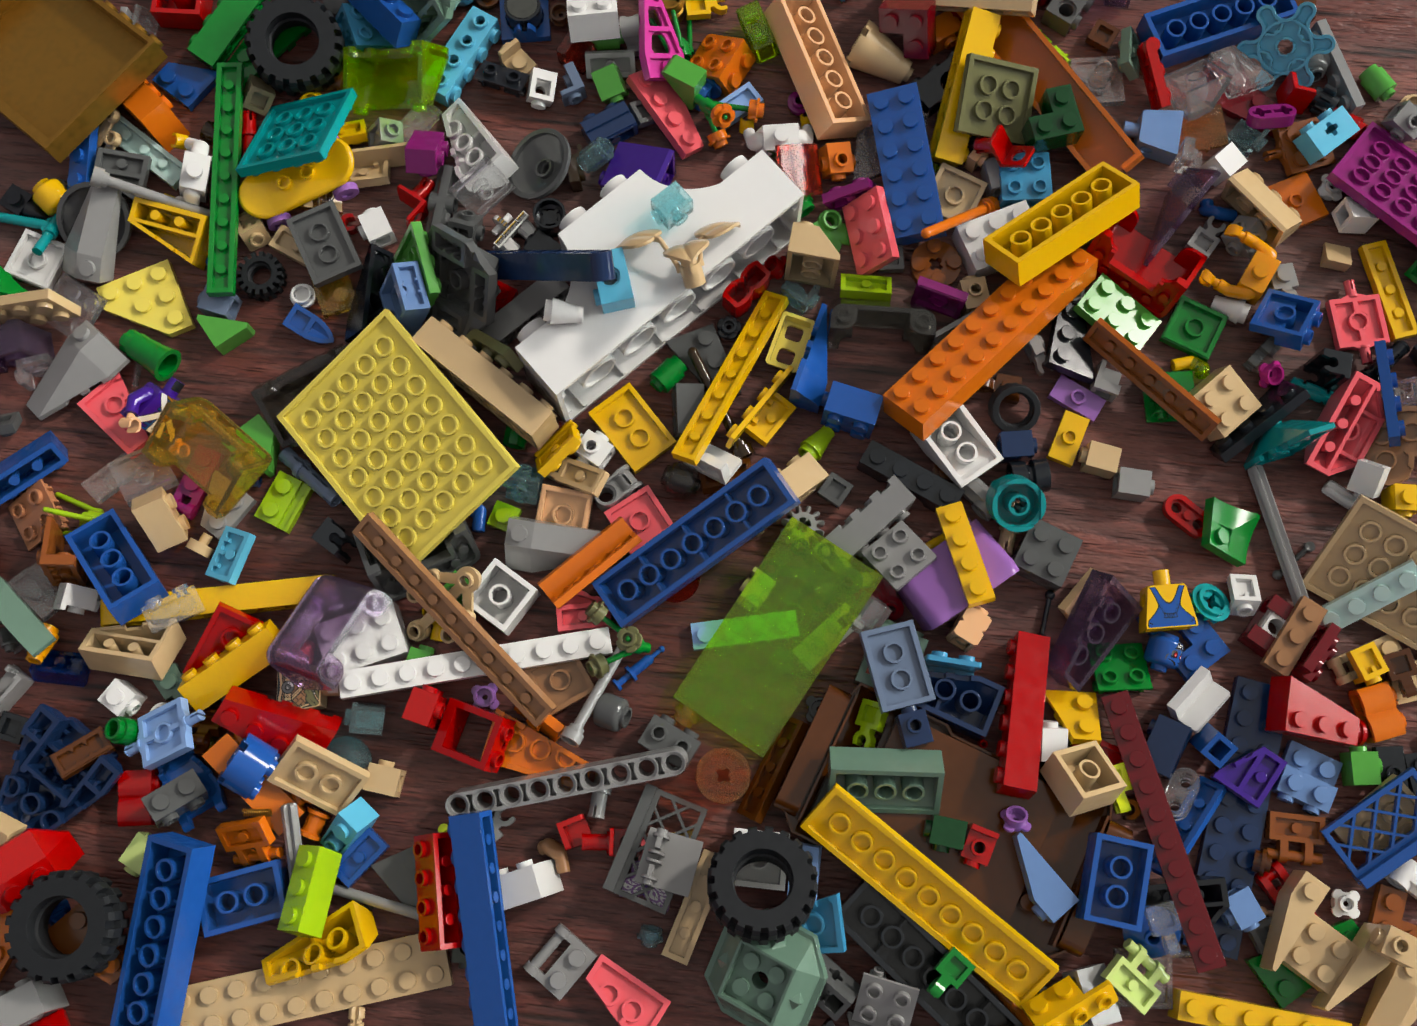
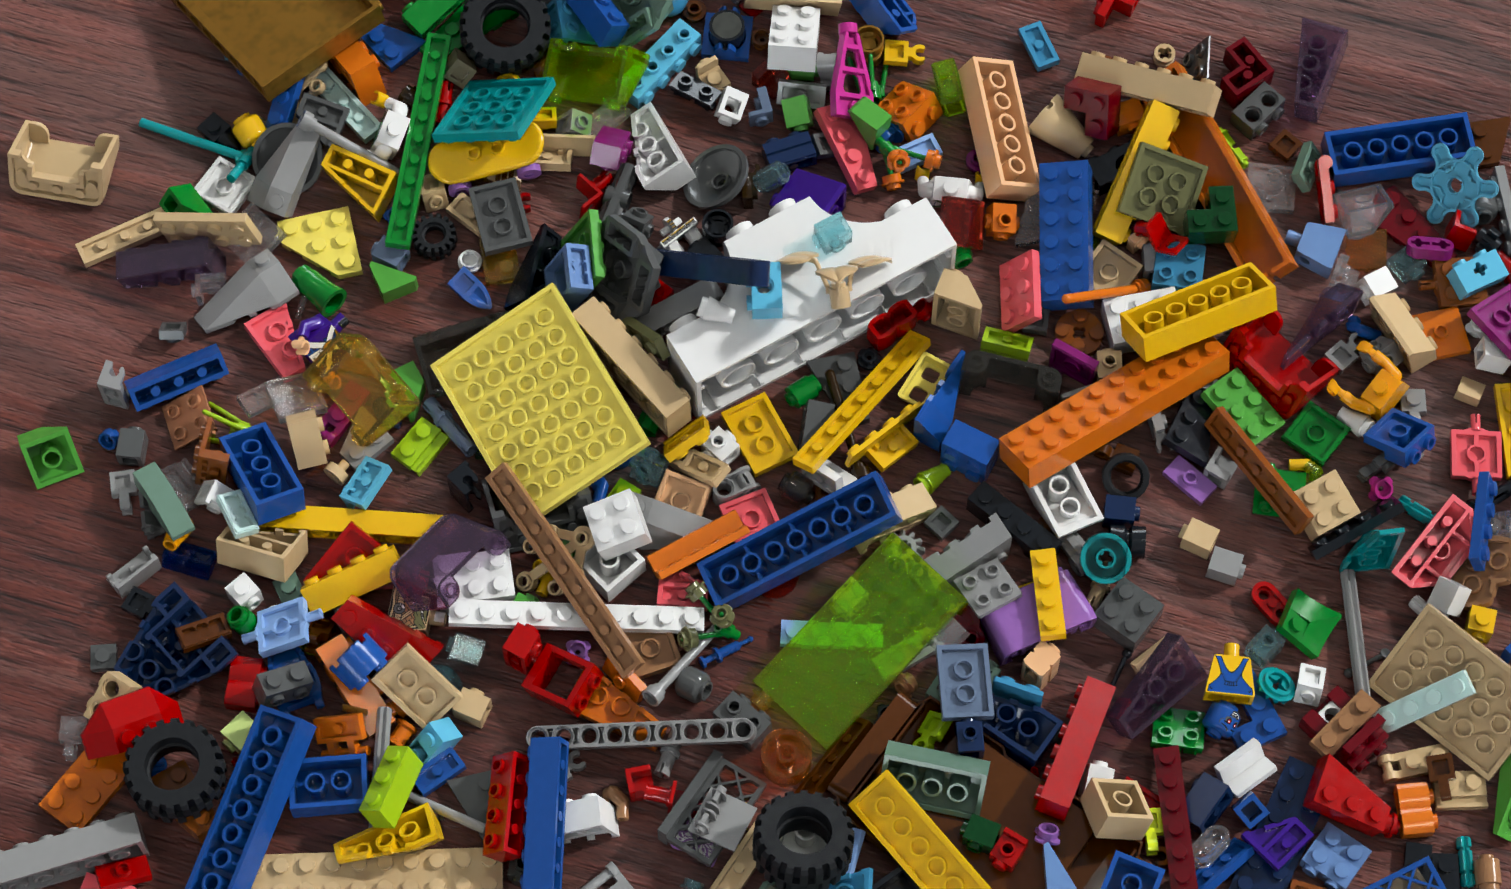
camera: 10 degrees right, 10 degrees down
(97, 617) = (237, 514): none -> light aqua plate
(173, 609) = (310, 518): clear brick -> none
(376, 227) = (550, 209): white brick -> none
(482, 187) = (658, 189): clear plate -> none
(500, 559) = (617, 524): none -> white brick
(798, 297) = (940, 340): clear light blue bracket -> none
(832, 671) = (905, 683): none -> nougat plate
(837, 232) = (986, 290): bright green plate -> none
(842, 195) = (999, 254): magenta wing -> none
(1068, 438) = (1173, 515): yellow plate -> none
(1077, 713) = (1127, 759): yellow wing -> none
(1190, 563) = (1265, 646): none -> clear light blue brick
(1246, 73) = (1409, 202): clear wing -> none
(1330, 367) = (1434, 487): black hinge -> none
(1360, 767) = (1387, 855): bright green brick -> none
(1367, 664) = (1411, 763): yellow bracket -> none

